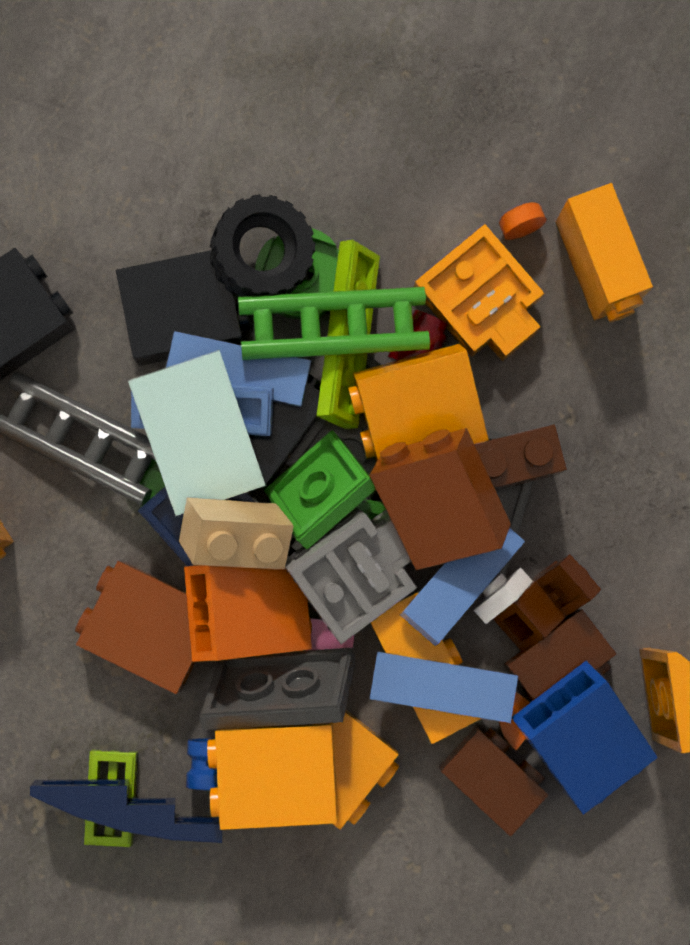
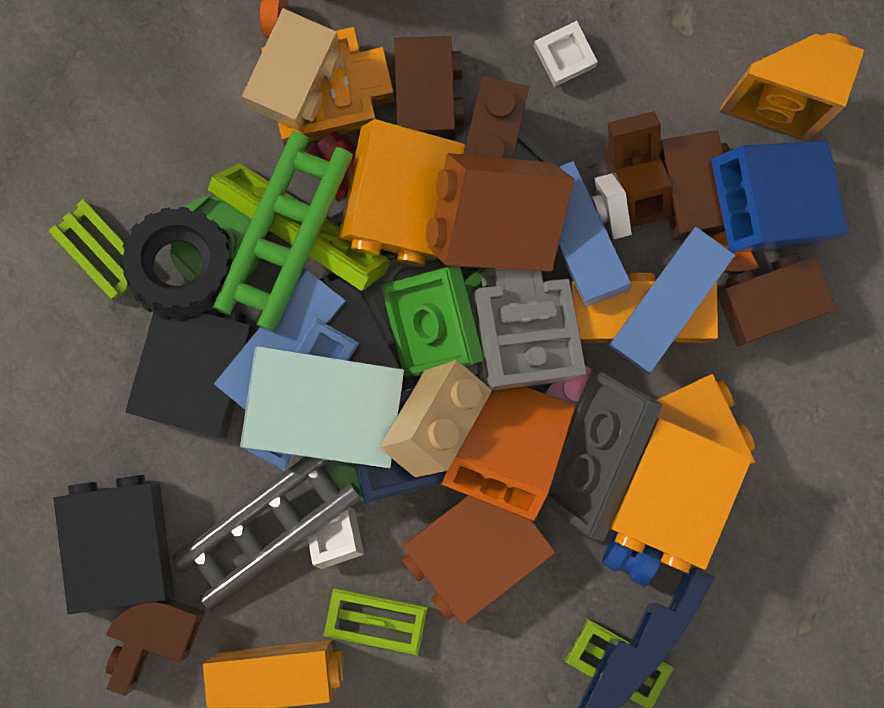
camera: 65 degrees left, 0 degrees up
(63, 563) = (370, 639): none -> lime tile
(96, 503) = (336, 541): none -> white plate
(257, 143) = (72, 221): none -> lime tile
(476, 261) = (293, 70): none -> tan brick
(524, 382) = (425, 85): none -> reddish brown brick
(618, 488) = (565, 54): none -> white plate

